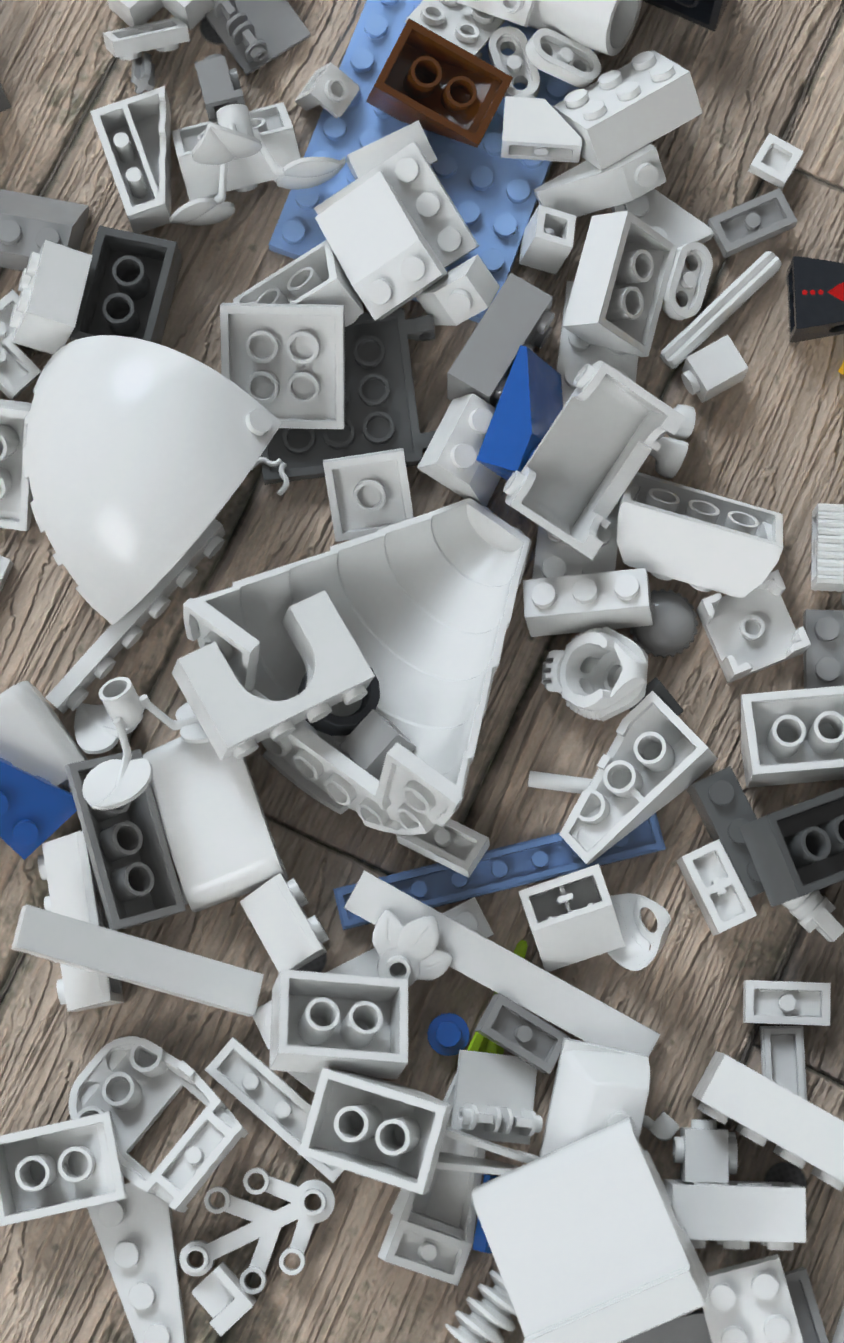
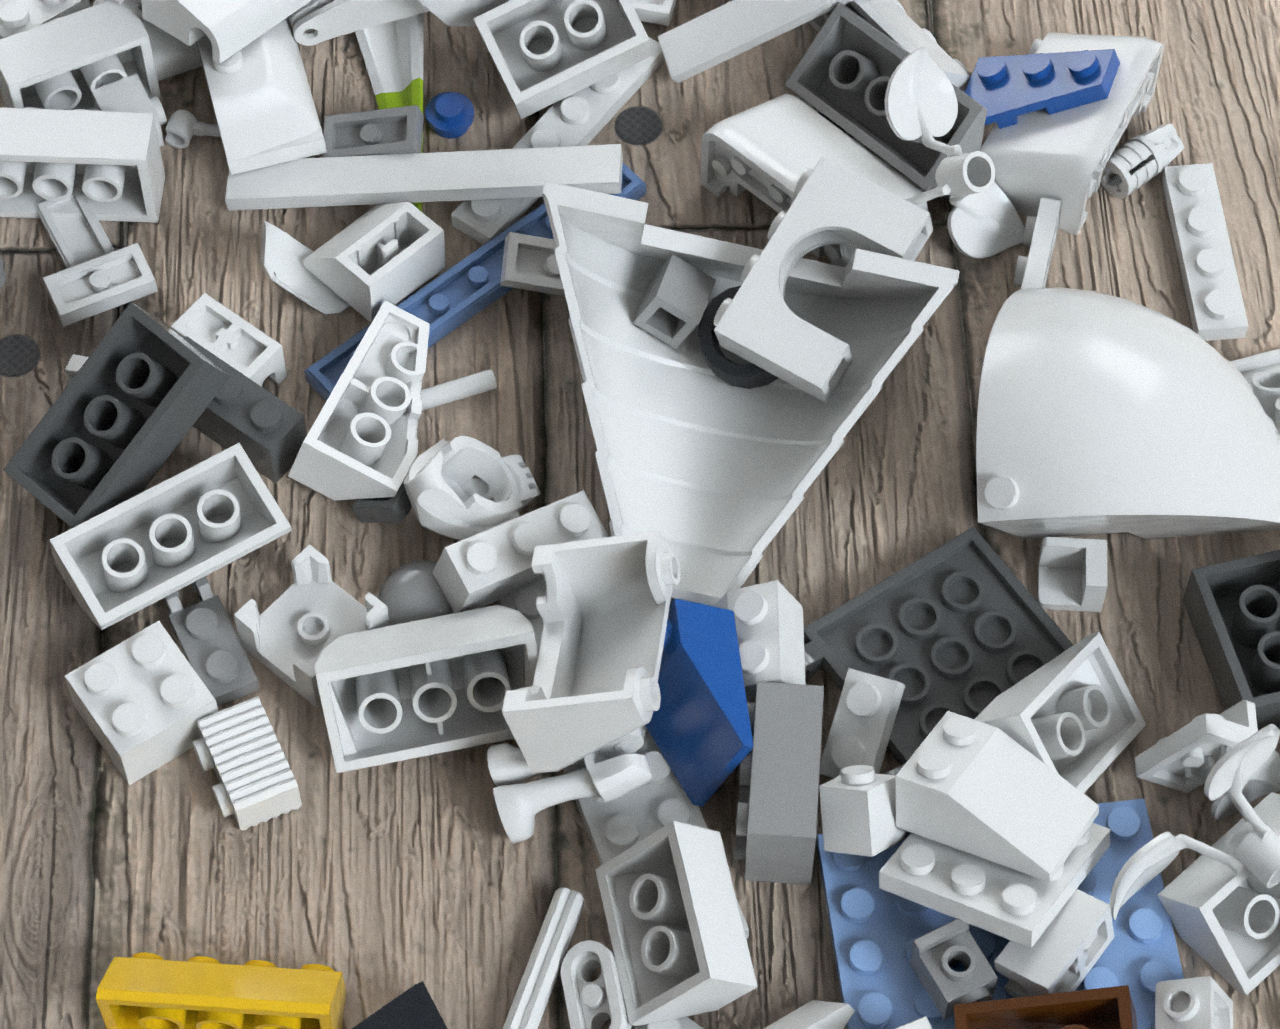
camera: 150 degrees right, 20 degrees down
(216, 240) = (1191, 752): none -> white bracket
(283, 489) = (961, 549): white piece -> none
(283, 924) = (665, 120): white slope -> none
(288, 360) = (1025, 621): white plate -> none
(367, 492) = (841, 561): white plate -> none
(410, 945) = (529, 136): white plate -> none
(422, 369) = (861, 723): none -> white plate
(466, 186) = (942, 949): none -> light grey brick
(495, 1097) = (372, 70): white hinge -> none
(547, 239) = (801, 953): white brick -> none
(713, 369) = (505, 901): white brick -> none

